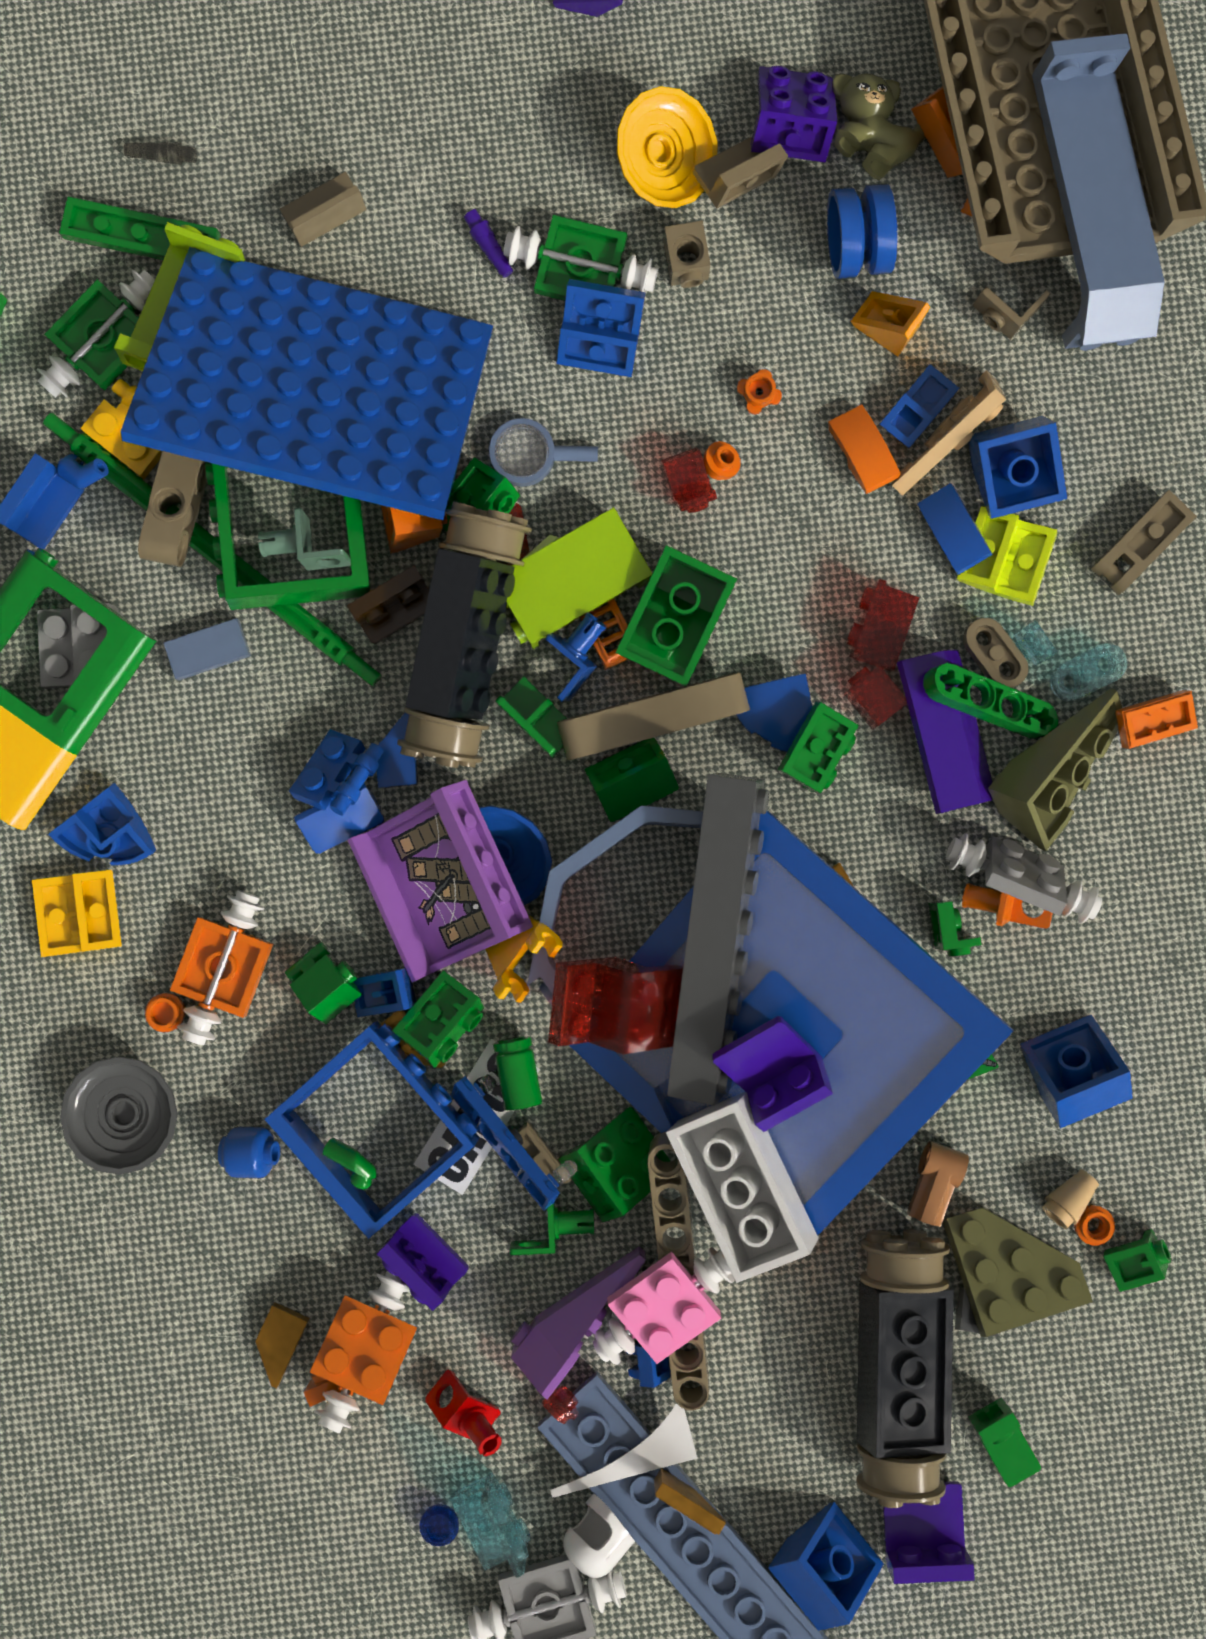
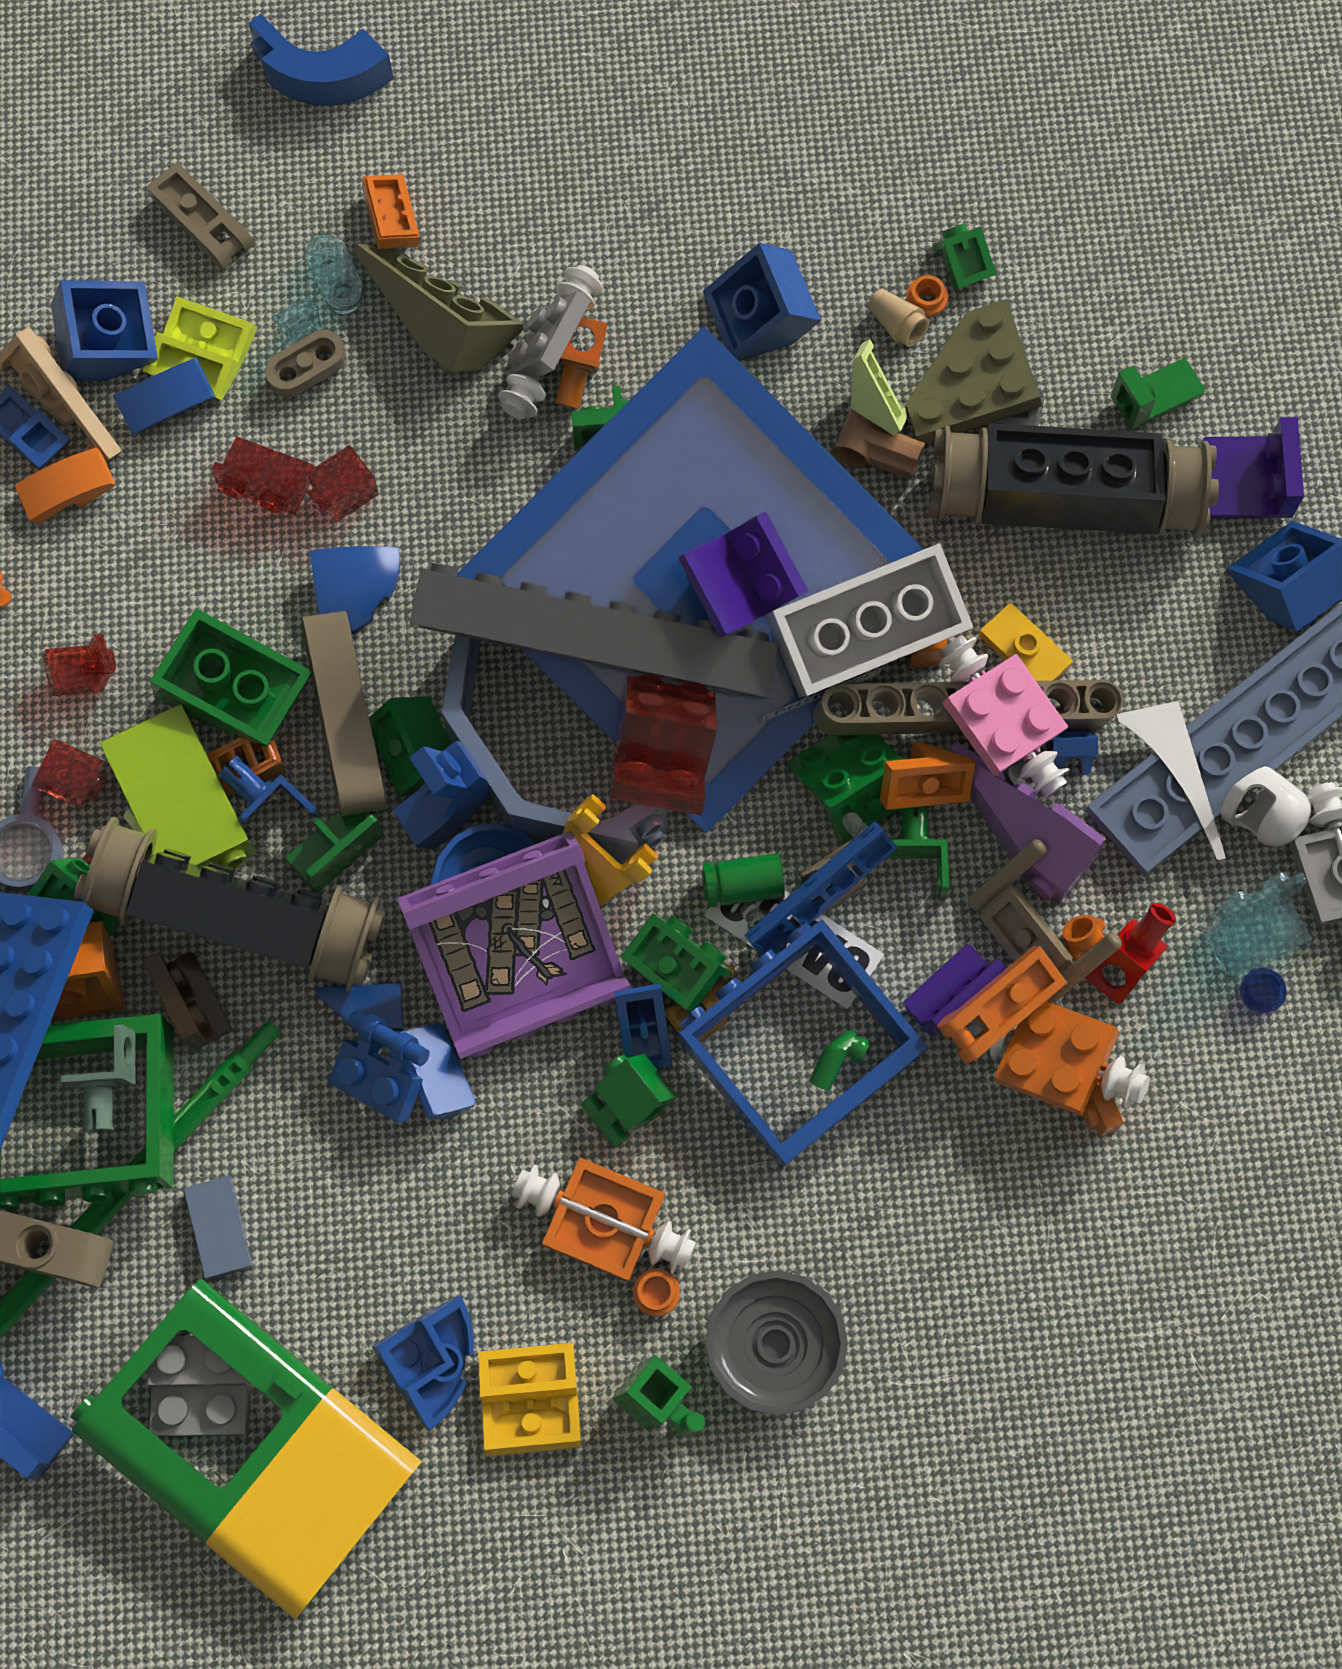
camera: 90 degrees left, 15 degrees down
(72, 1019) = (655, 1396): none -> green brick
(248, 1152) = (826, 1192): blue head -> none
(279, 1340) = (1051, 1167): pearl gold tile -> none
(399, 1305) = (1003, 1003): none -> orange plate
(475, 1323) = (1021, 927): none -> dark tan plate
(488, 1371) = (1082, 934): none -> orange plate
(562, 1405) = (1118, 837): clear red plate -> none
(569, 809) = (448, 798): none -> blue arch
(587, 484) = (69, 774): none -> clear red brick
(609, 1237) = (927, 778): none -> orange slope
(687, 1501) = (1223, 705): pearl gold tile -> none
(715, 466) = (60, 631): orange plate -> none
(747, 1318) = (1014, 634): none -> yellow plate
(818, 748) = (393, 539): green bracket -> none
(946, 739) = (385, 413): dark purple slope -> none
(980, 1181) = (872, 393): none -> yellowish green slope
(992, 696) = (352, 362): green beam -> none

